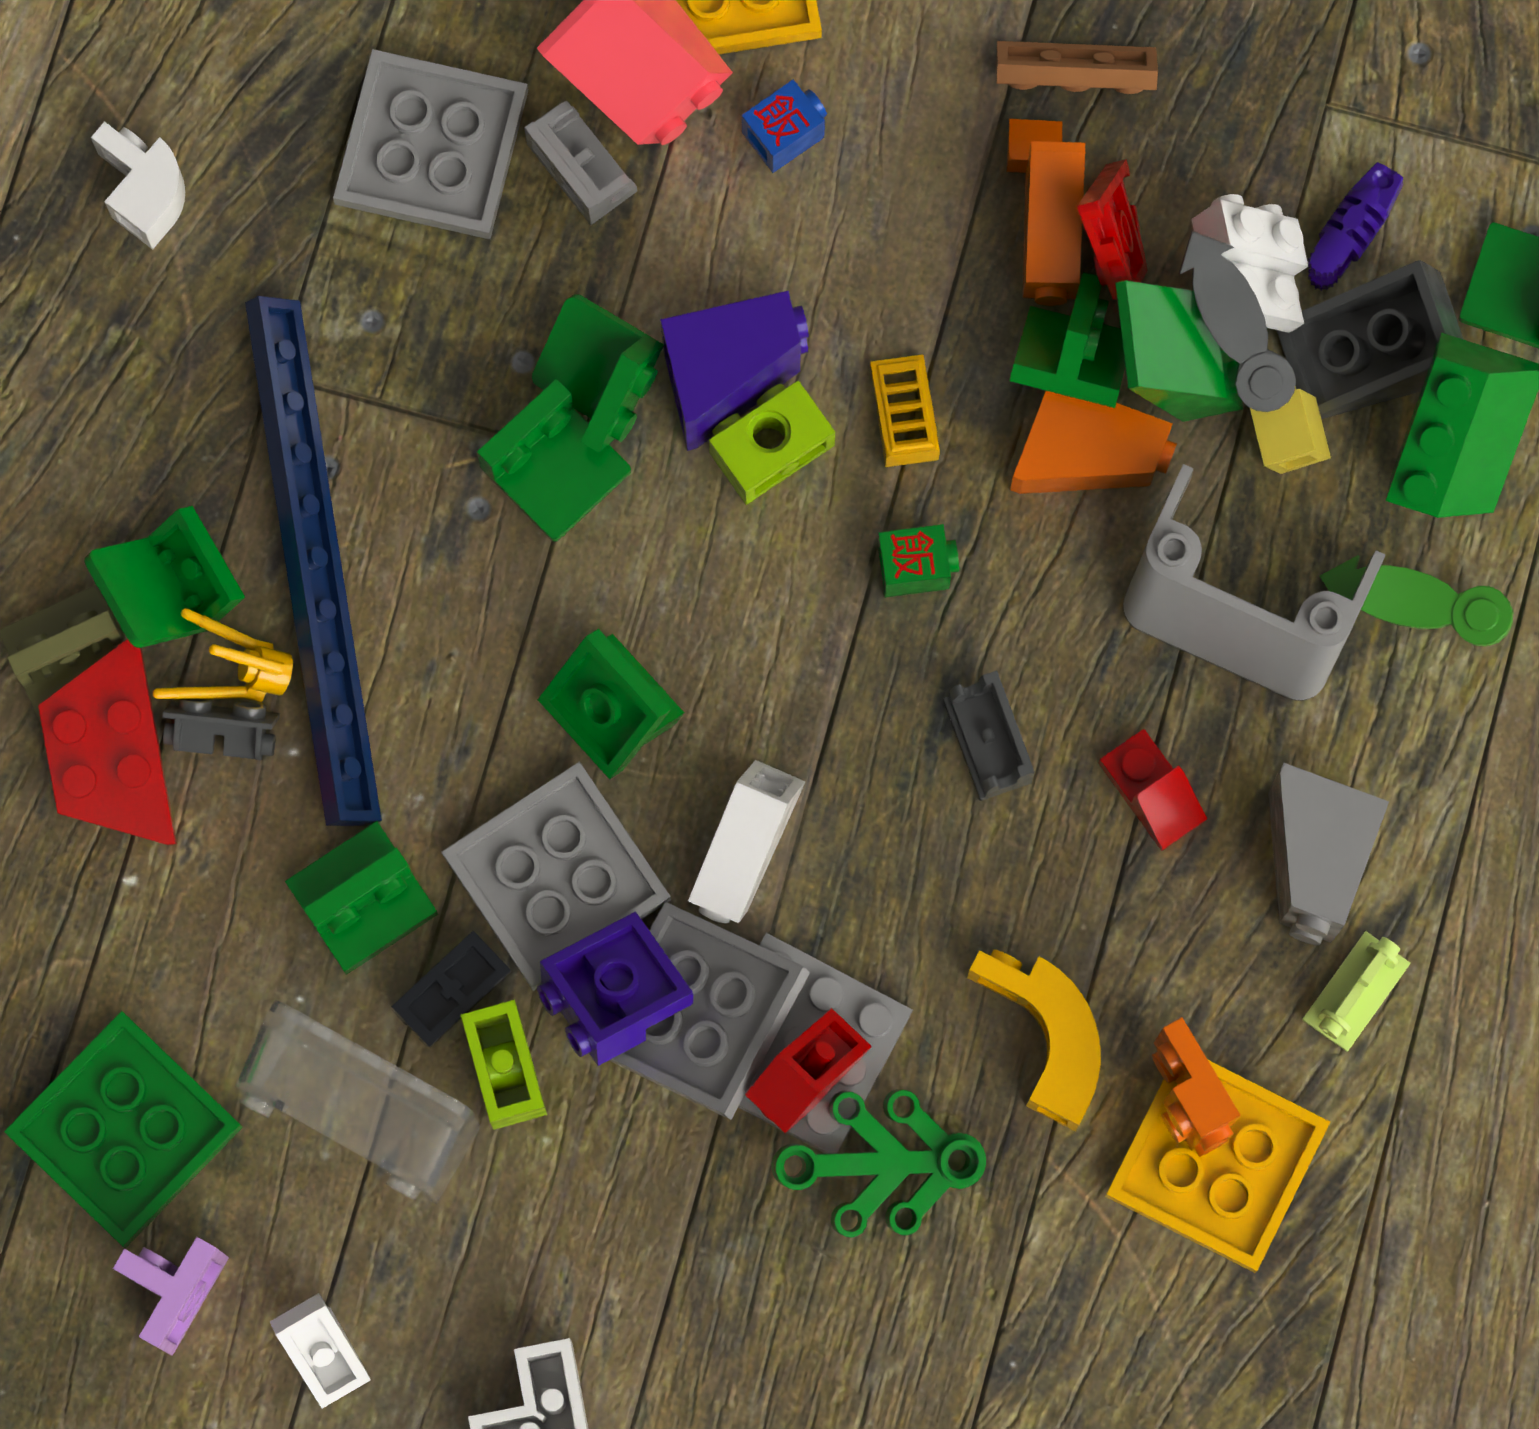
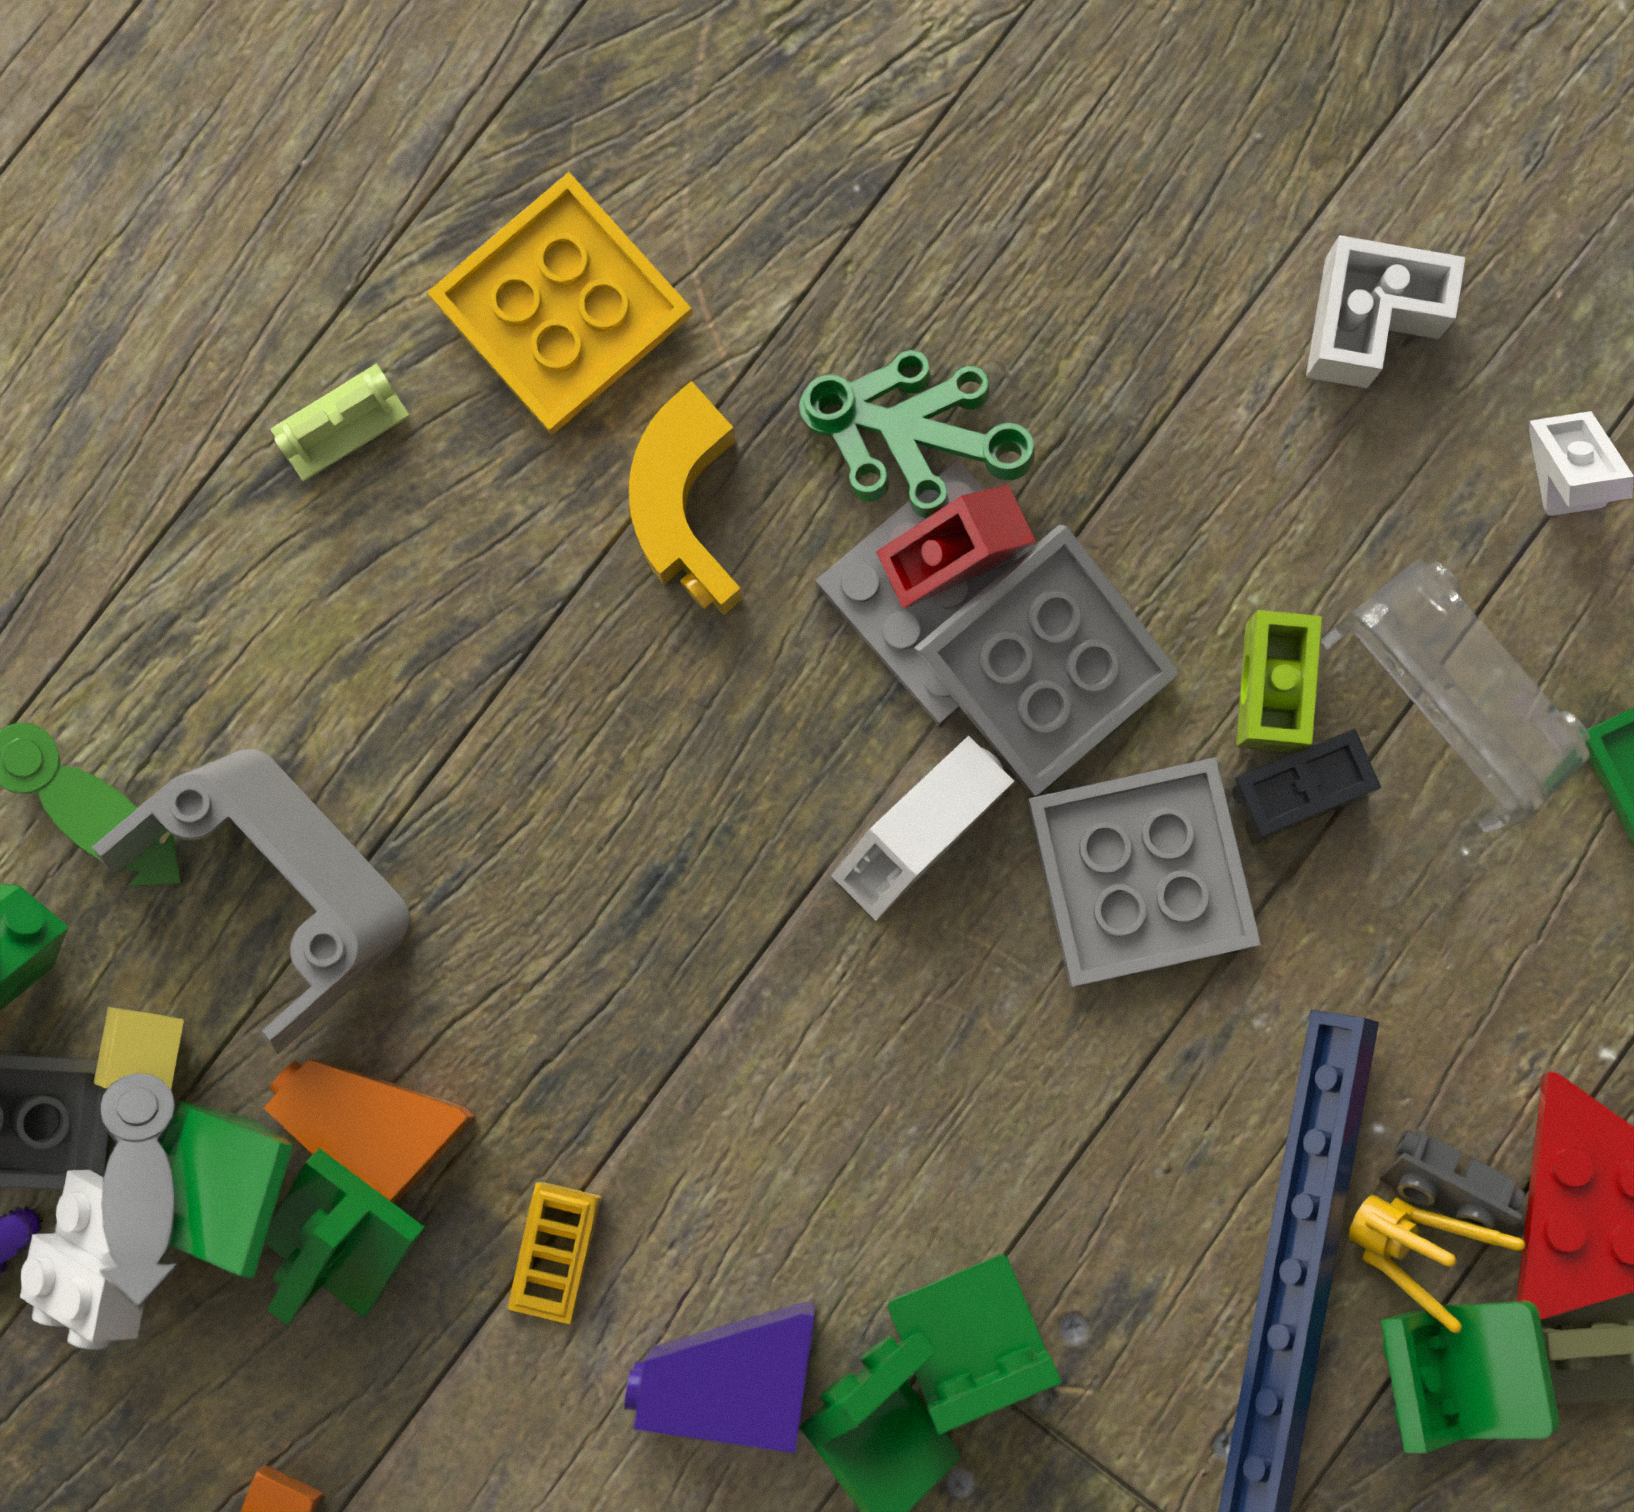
camera: 155 degrees left, 5 degrees up
(361, 897) = (1364, 933): green bracket -> none
(608, 702) = (1012, 1040): green bracket -> none
(612, 988) = (1132, 714): dark purple plate -> none
(758, 469) = (678, 1265): lime brick -> none
(916, 560) = (611, 1069): green brick -> none
(989, 737) = (613, 841): dark grey hinge -> none
(1053, 221) = (294, 1403): orange slope -> none
(1113, 228) = (231, 1361): red wing -> none
(1153, 789) = (460, 719): red slope -> none
(1199, 1105) = (560, 348): orange plate -> none
(1319, 849) = (312, 564): light grey slope -> none

